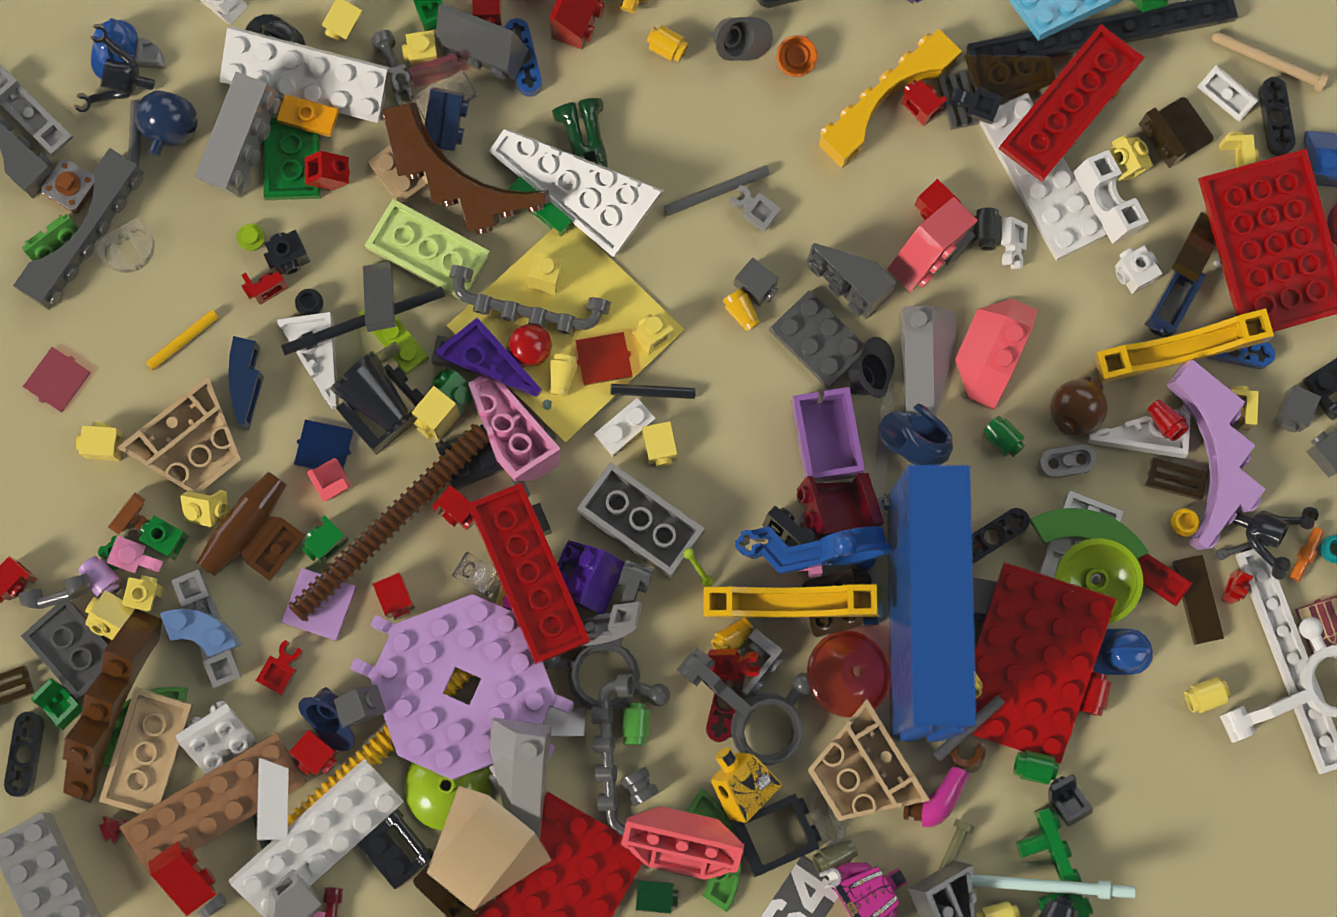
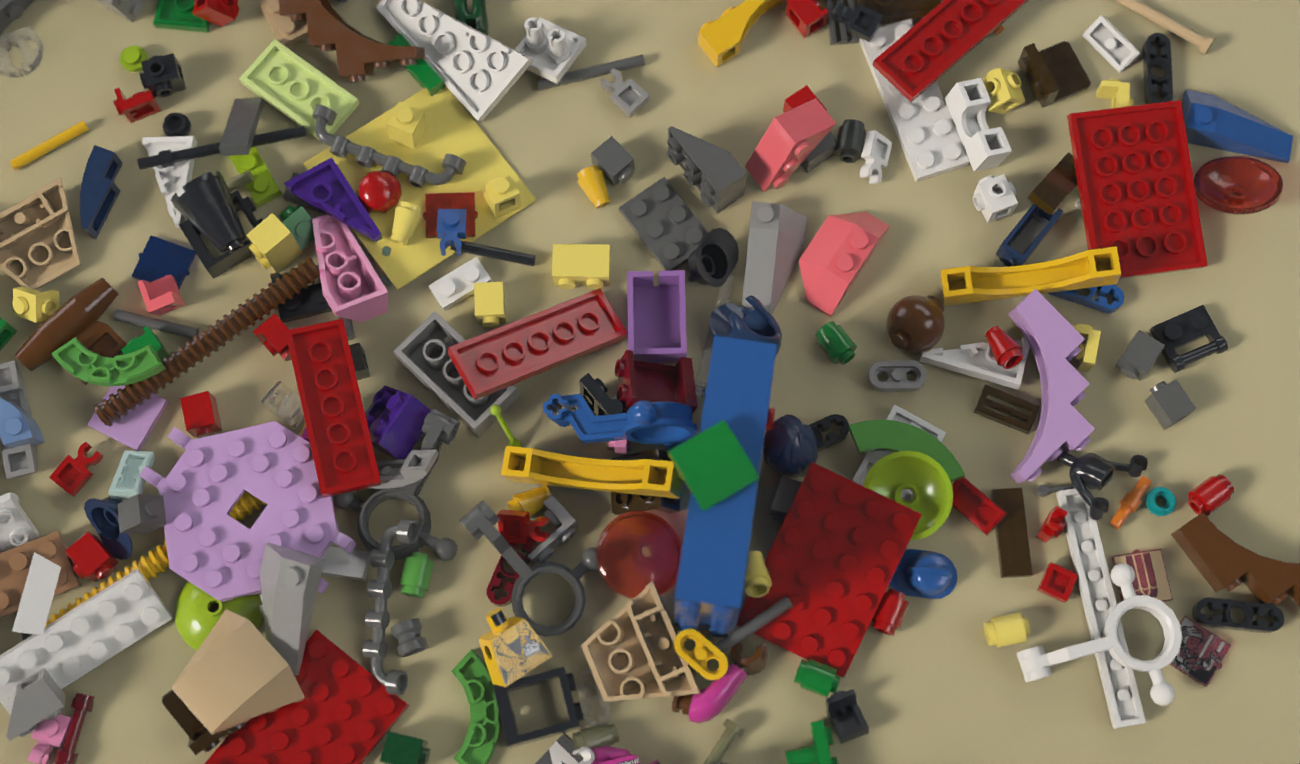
camera: 15 degrees right, 5 degrees down
(294, 566) = (105, 370): none -> bright green tile
(328, 510) = (156, 324): none -> dark grey bar
(336, 666) = (127, 478): none -> light aqua plate
(387, 854) = (145, 668): black plate -> none
(609, 372) = (451, 228): none -> blue plate
(675, 172) = (550, 48): none -> white plate
(682, 843) = (438, 699): coral wedge -> none
(716, 480) = (537, 343): none -> plate
(743, 393) = (581, 265): none -> light yellow brick
(925, 763) = (701, 654): none -> yellow plate
(930, 593) = (713, 465): none -> green slope
(987, 548) = (790, 447): none -> dark blue hair
(1184, 522) = (1008, 453): yellow plate -> none
(1248, 642) = (1057, 582): none -> red plate

